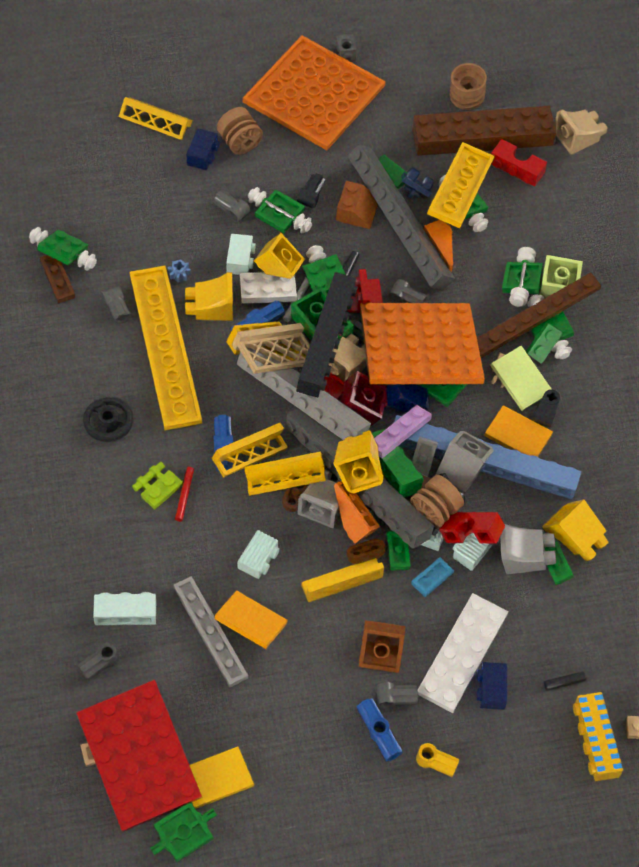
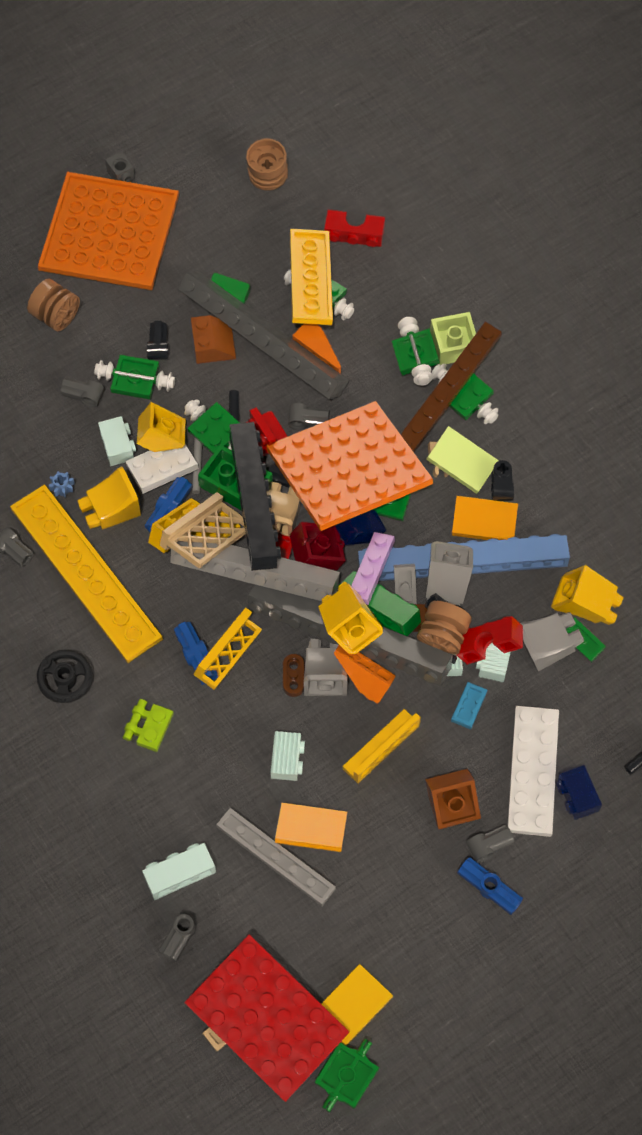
camera: 20 degrees left, 5 degrees up
(184, 494) = (184, 740): red bar -> none
(202, 149) = (21, 339): clear blue brick -> none
(285, 470) = (273, 657): yellow fence -> none
(365, 551) = (392, 706): reddish brown plate -> none
(398, 552) = (423, 694): green plate -> none
(423, 187) = (255, 290): dark blue hips -> none
(440, 761) = (562, 892): yellow piece -> none
(483, 129) = (303, 206): reddish brown brick -> none
(544, 342) = (469, 413): green plate -> none
(578, 129) = (398, 168): tan hips -> none

